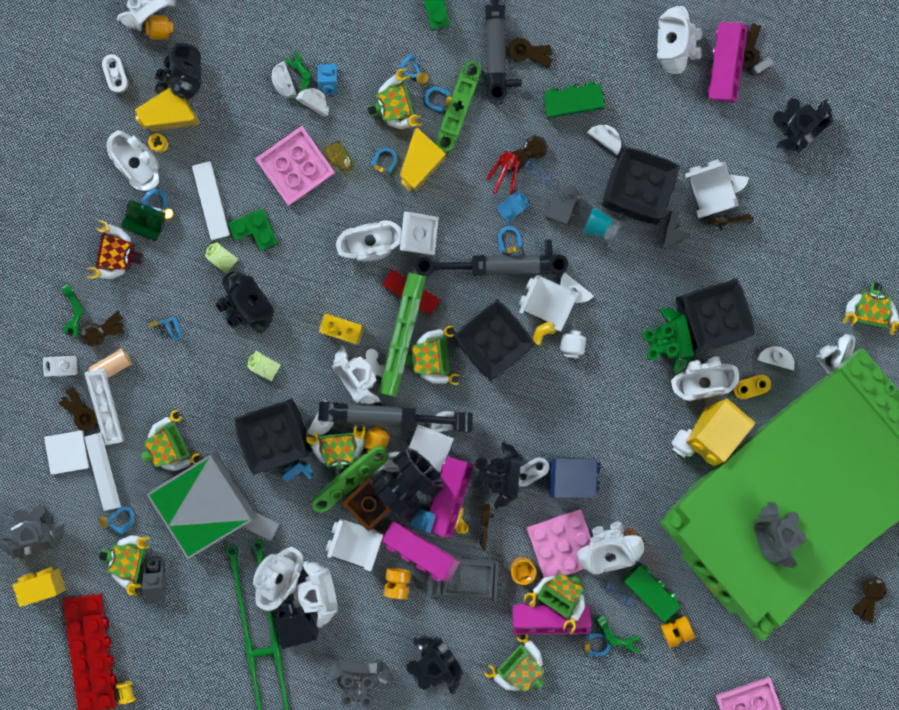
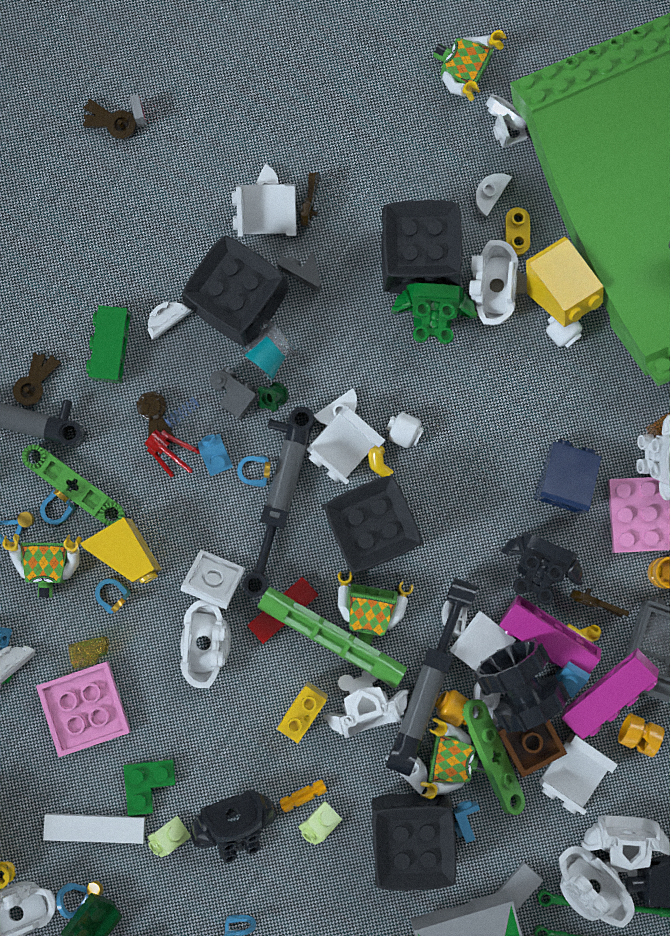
camera: 65 degrees left, 5 degrees down
(279, 347) = (303, 795): none -> light orange axle
(531, 472) = (547, 526): white plate -> none
(569, 237) = (273, 396): none -> dark green brick
(674, 55) = (91, 206): white piece -> none
(727, 62) = (120, 148): dark pink brick -> none
(802, 124) = (220, 82): black piece -> none

